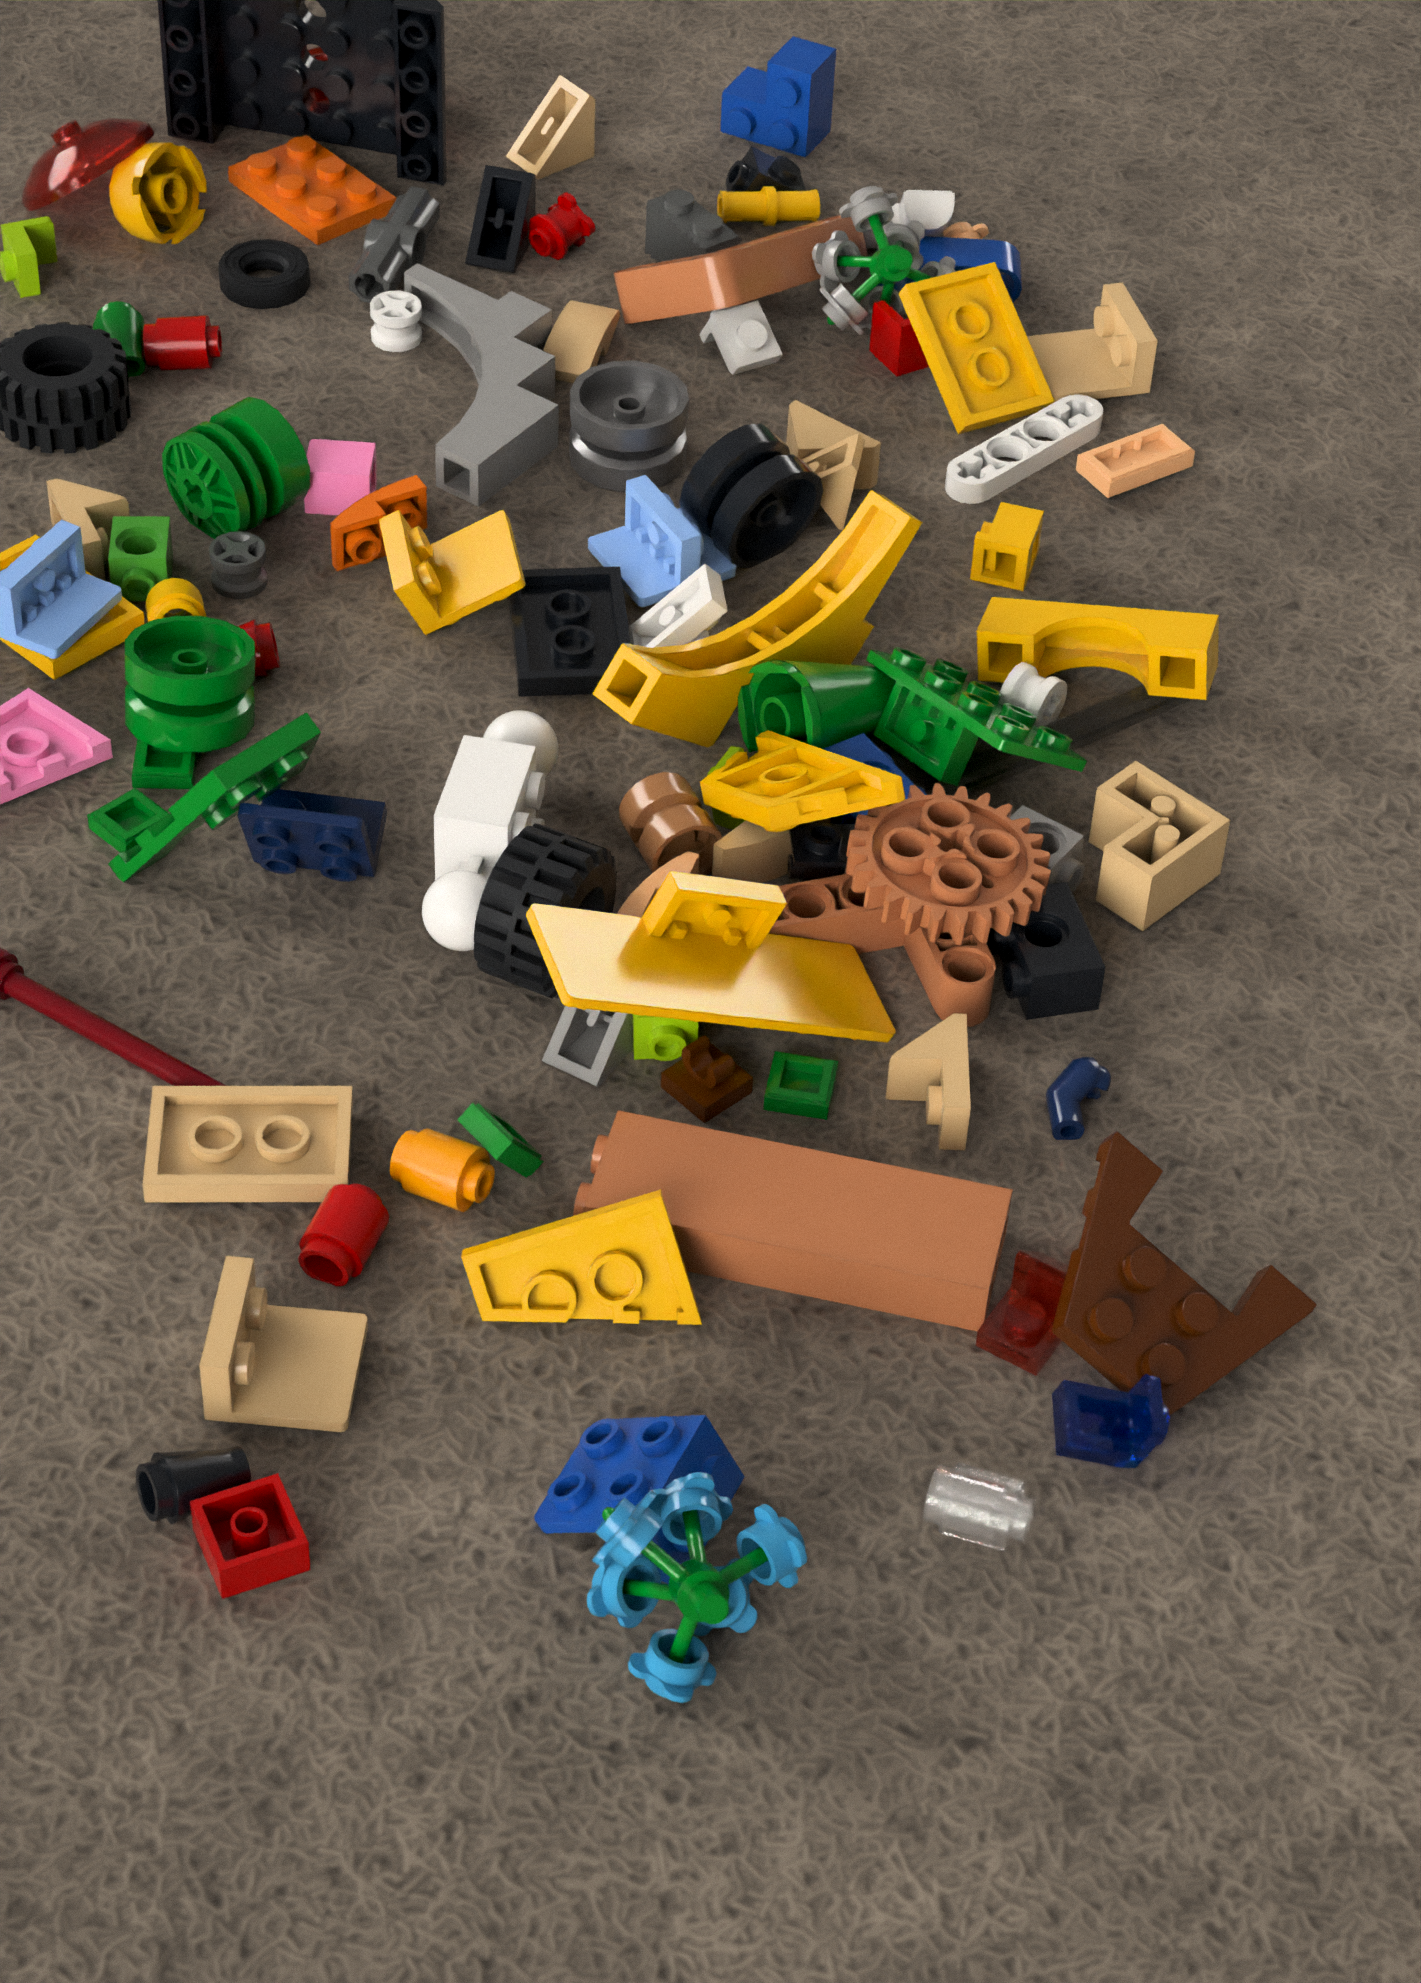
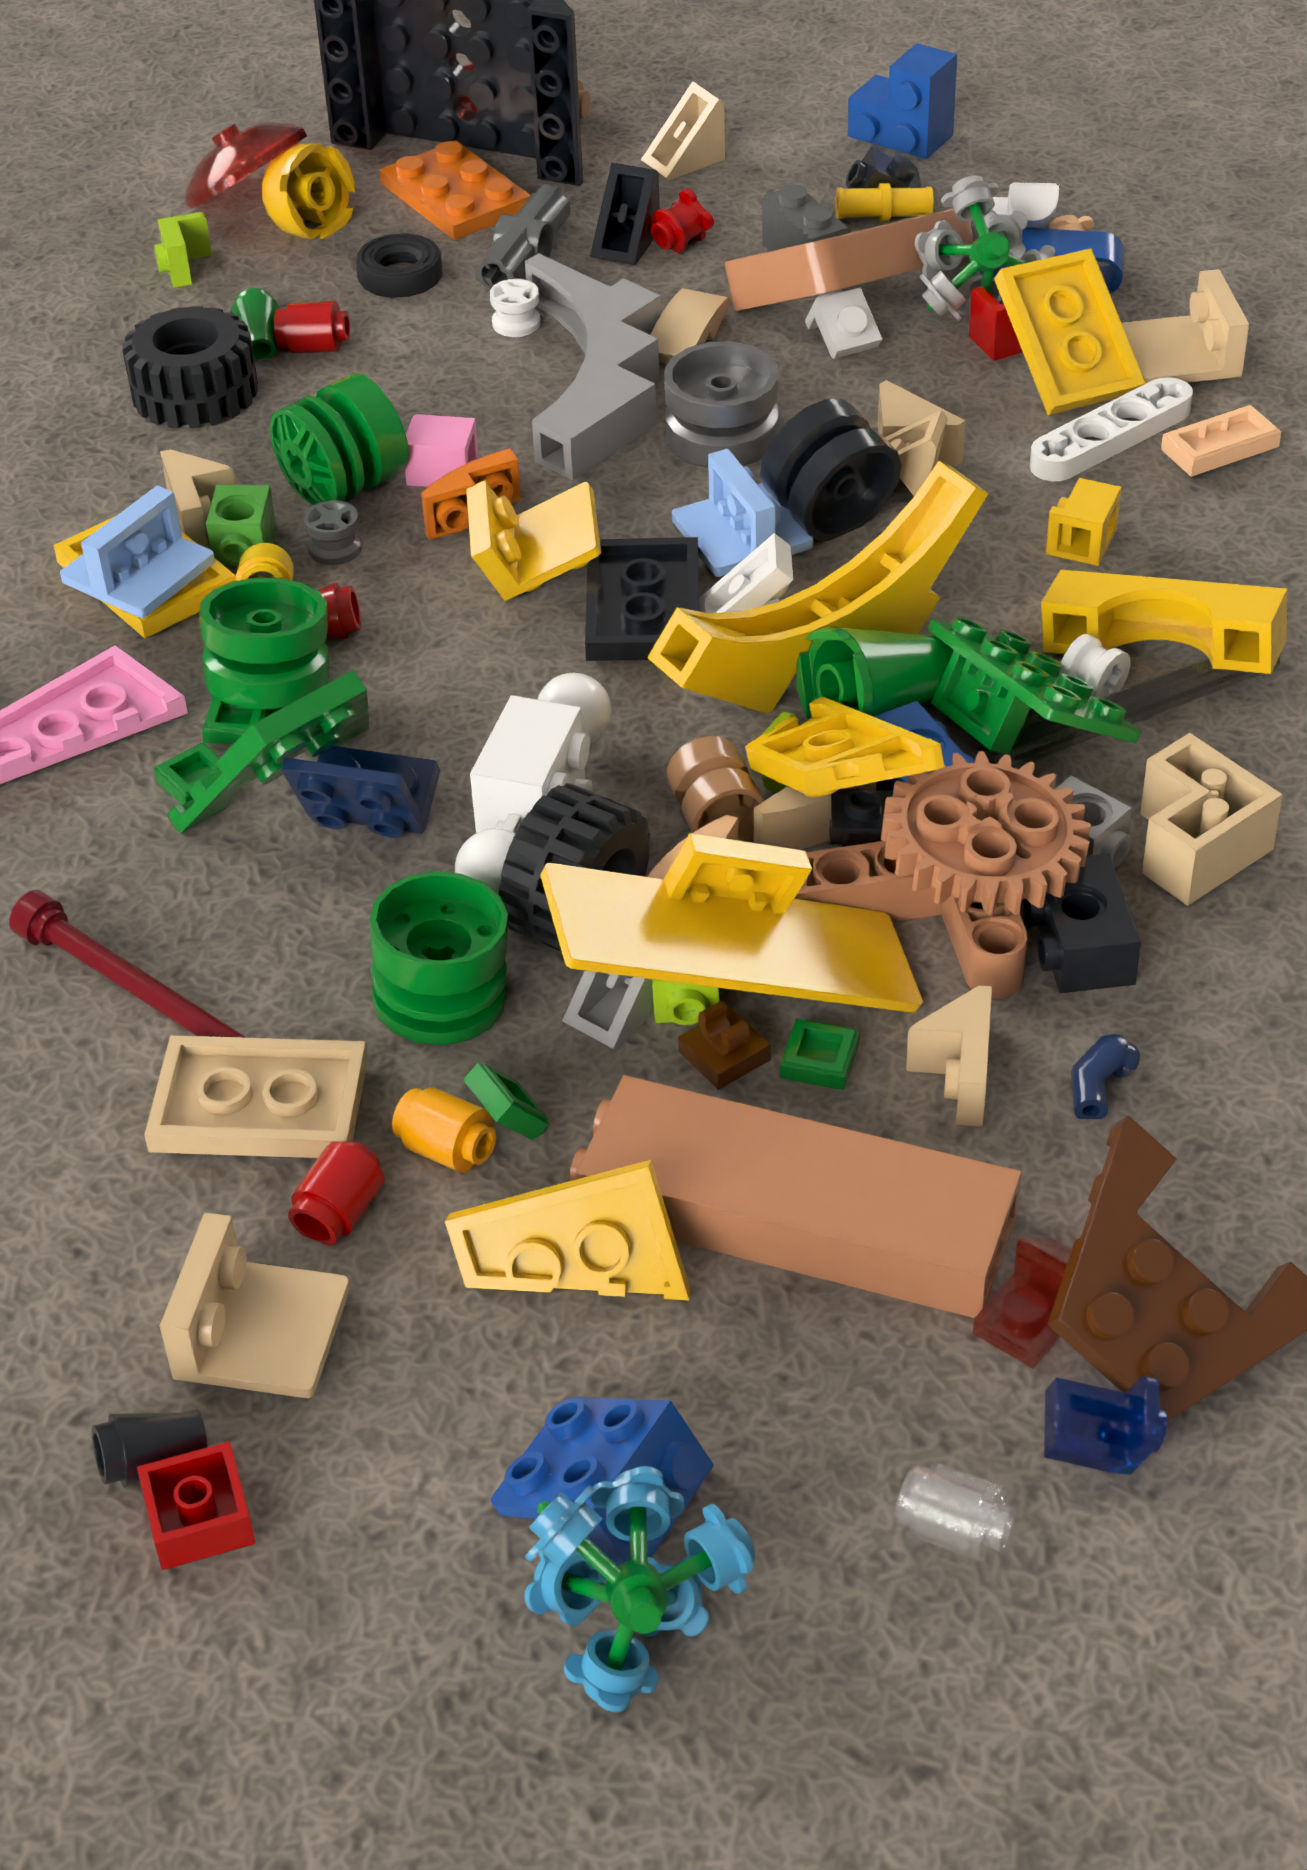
camera: 10 degrees right, 0 degrees up
(418, 1000) = (438, 957): none -> green wheel

